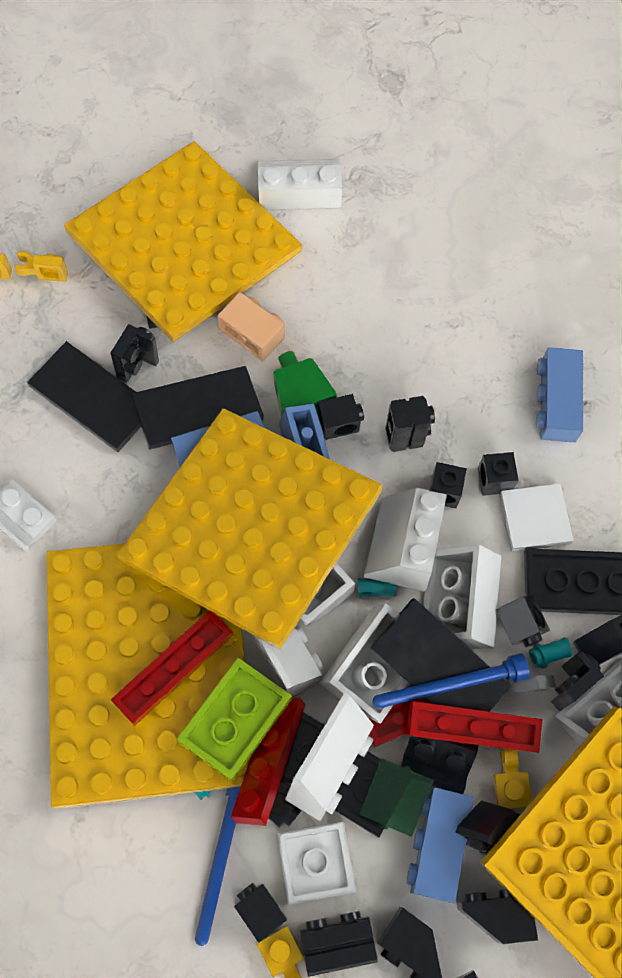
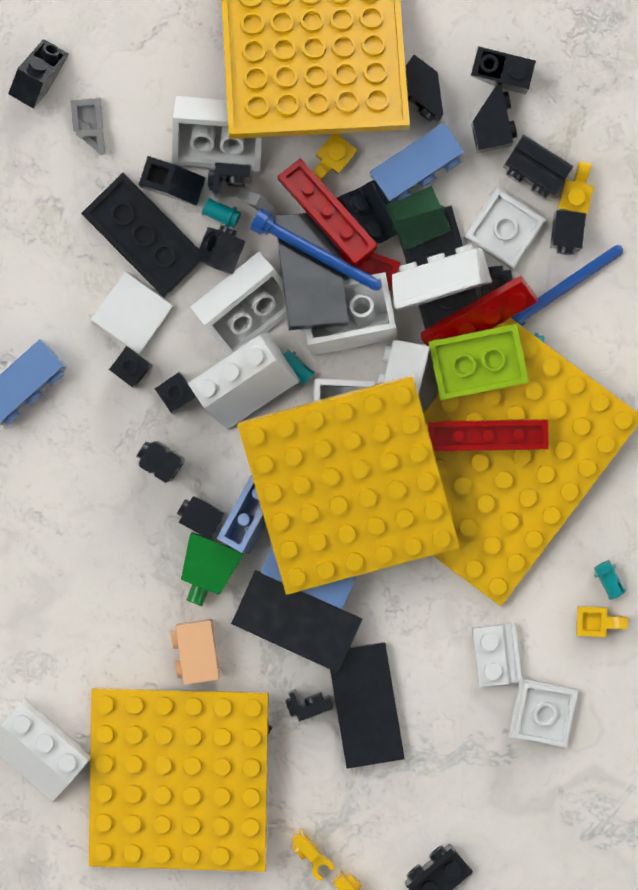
camera: 130 degrees left, 20 degrees up
(486, 825) = (379, 147): black slope -> none

